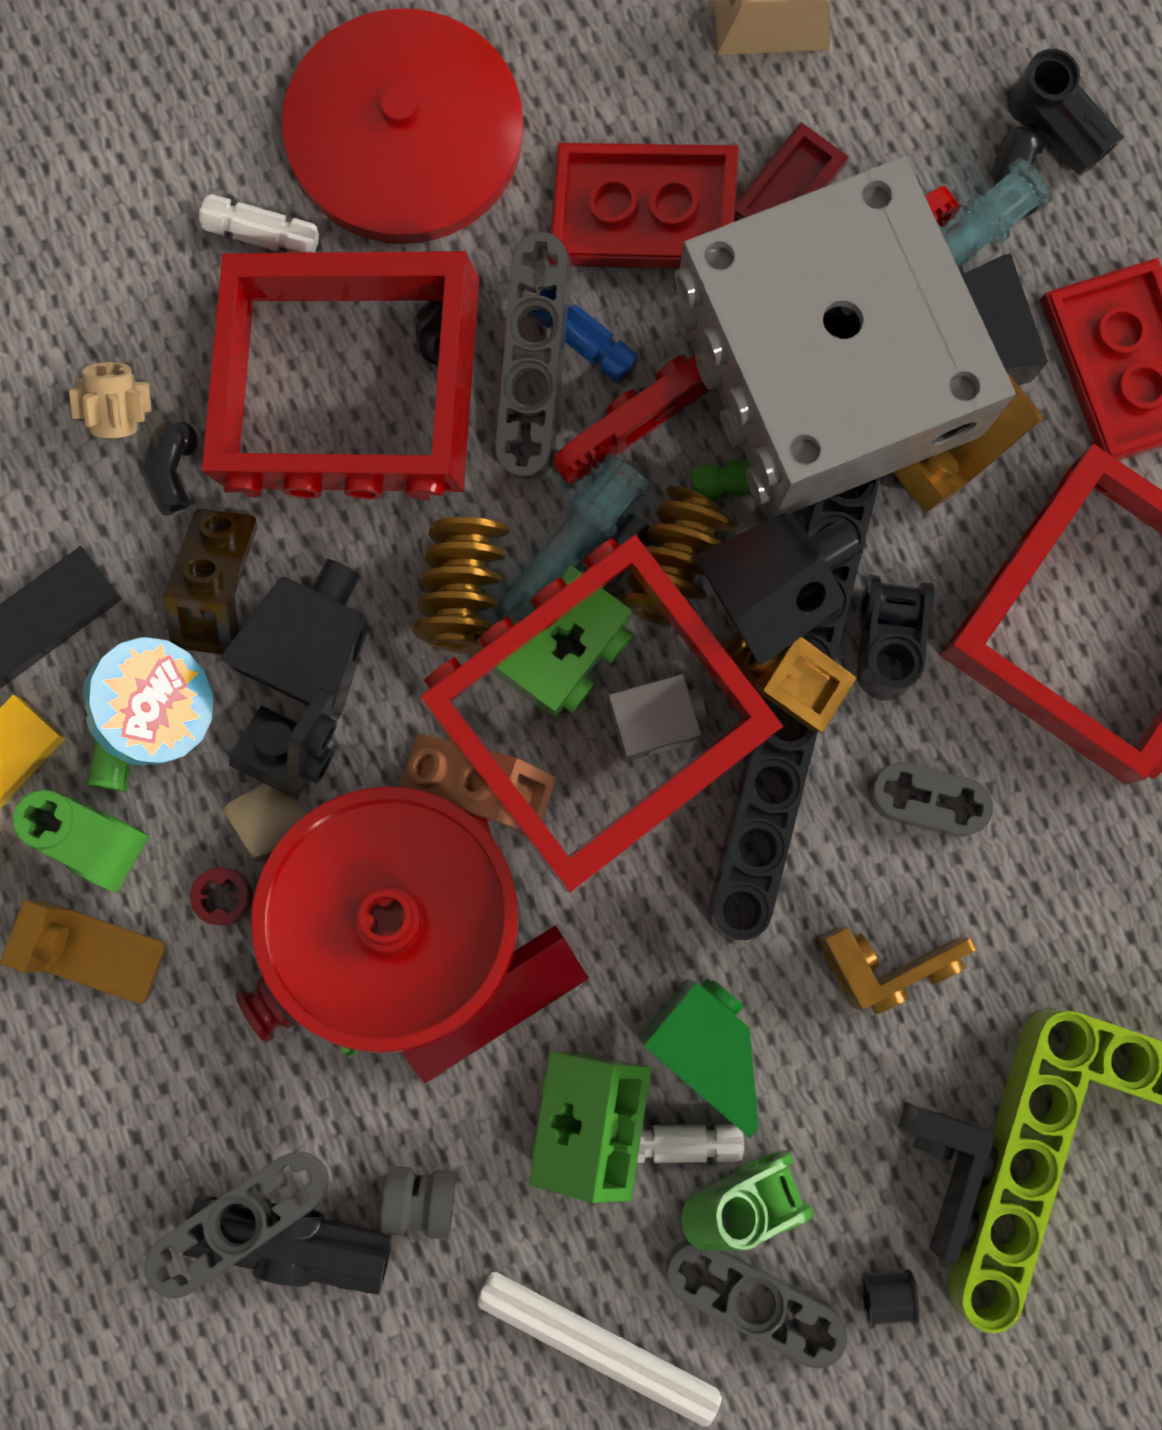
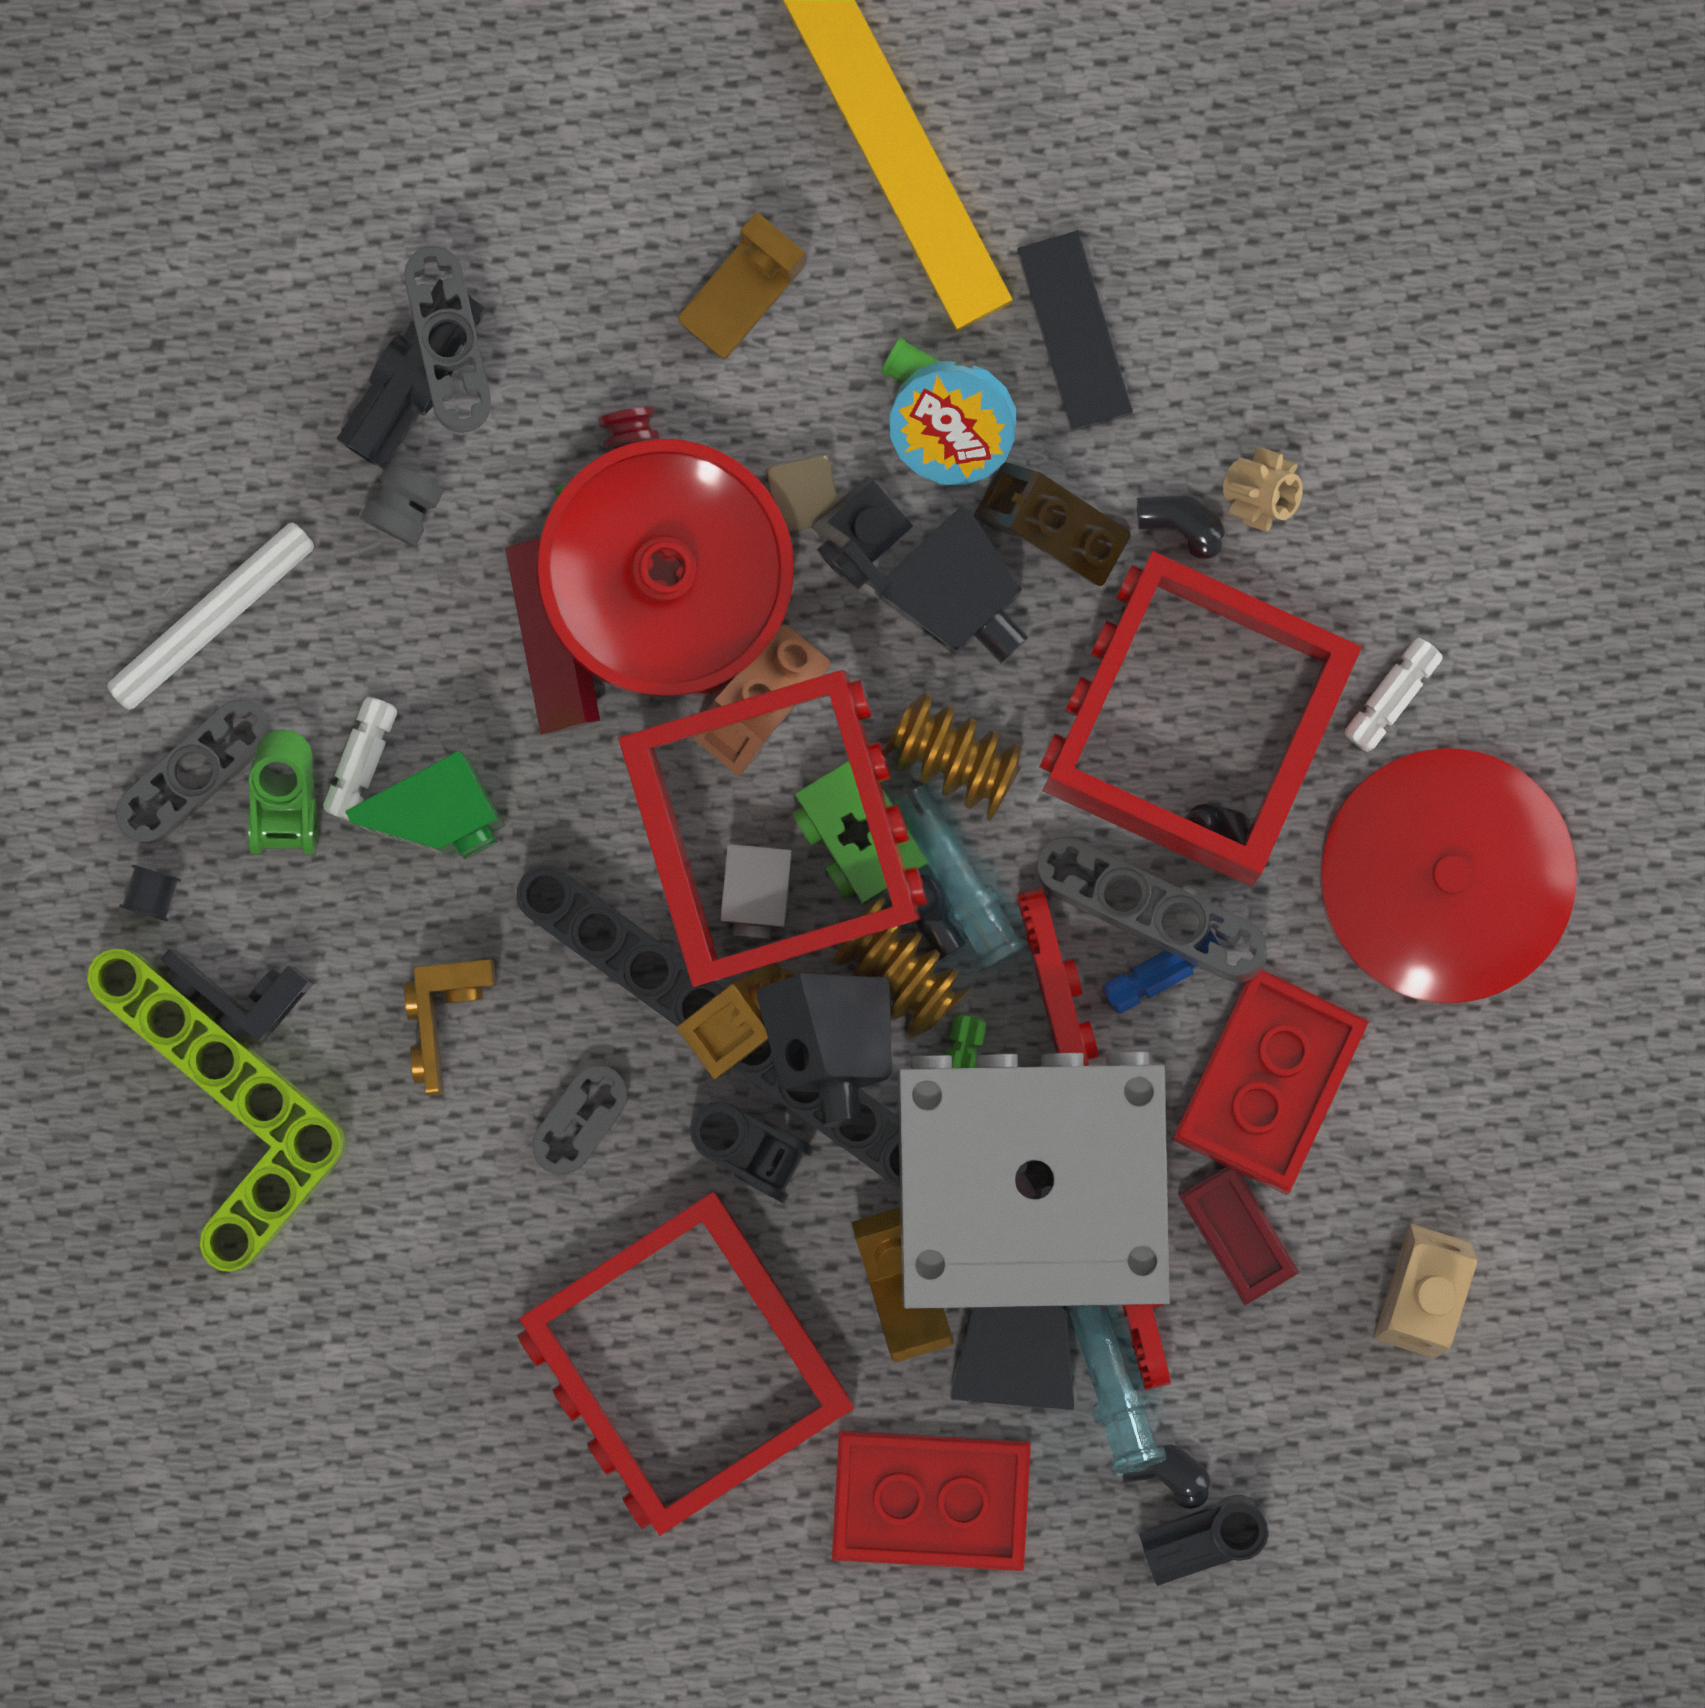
camera: 115 degrees right, 5 degrees up
(87, 841) = (843, 327): bright green piece -> none
(221, 916) = (766, 430): dark red bush -> none
(589, 1127) = (408, 681): bright green brick -> none

